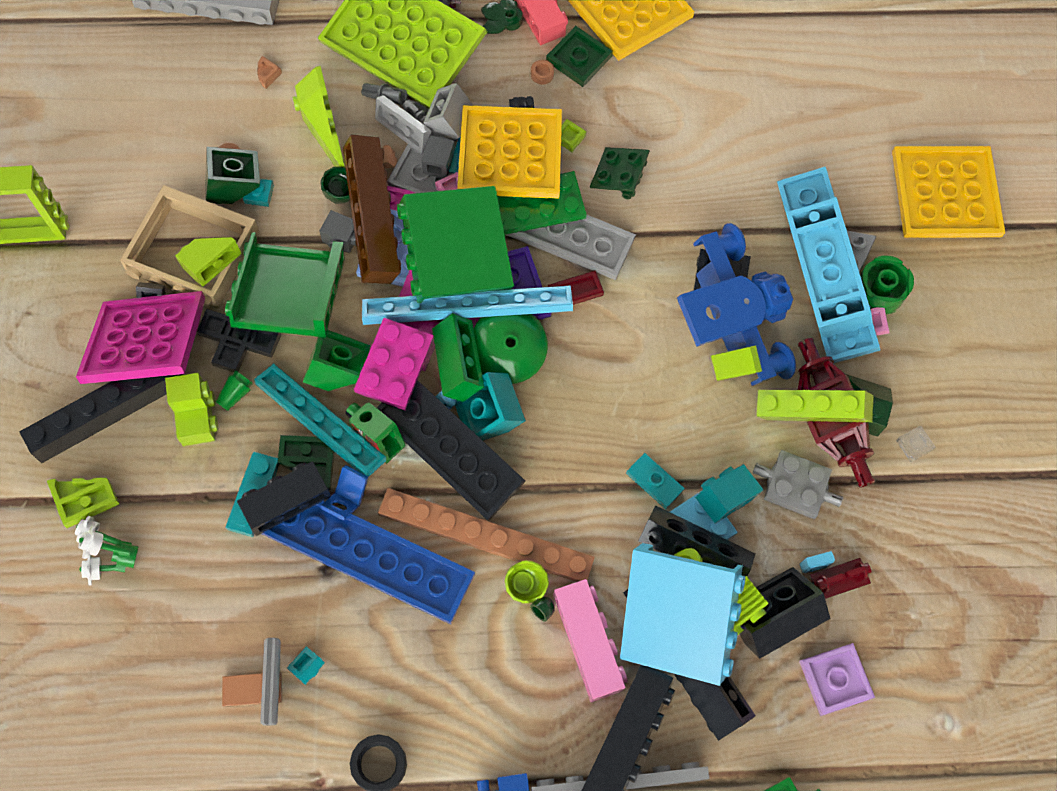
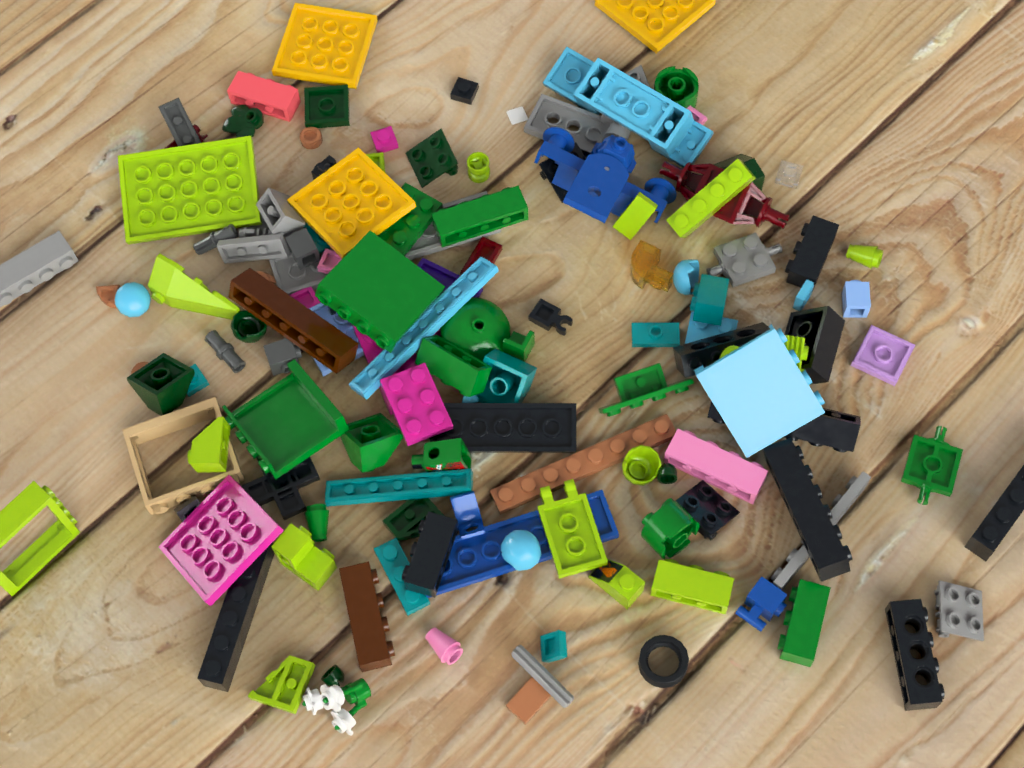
camera: 35 degrees left, 5 degrees down
(122, 524) = (332, 676): none -> dark green hinge
(191, 501) = (365, 616): none -> reddish brown brick
(225, 582) = (444, 646): none -> bright pink cone
(276, 88) = (132, 299): none -> medium azure hair
(303, 190) = (225, 351): none -> dark grey pin
(358, 561) = (521, 549): none -> medium azure hair
(409, 661) = (618, 582): none -> lime slope
(412, 583) = (571, 531): none -> lime tile
(466, 723) = (692, 586): none -> lime brick
(492, 657) = (669, 529): none -> green brick
(532, 388) = (519, 345): none -> green panel
(544, 669) = (707, 509): none -> black hinge
(580, 384) = (548, 315): none -> black plate
(596, 515) = (642, 385): none -> green bracket
(598, 122) = (384, 139): none -> dark pink plate
(605, 251) = (480, 216): none -> green brick
(649, 209) = (478, 167): none -> lime wheel
(702, 413) = (645, 268): none -> clear yellow brick
(705, 135) = (464, 91): none -> black plate
(729, 192) = (517, 115): none -> white sticker
(729, 452) = (686, 275): none -> medium azure hair
(781, 255) = (591, 126): none -> light grey hinge
(842, 577) = (827, 290): dark red hinge -> none
(861, 607) = (856, 299): none -> light blue brick
(863, 530) = (811, 252): none -> black brick
(911, 577) = (866, 255): none -> lime cone

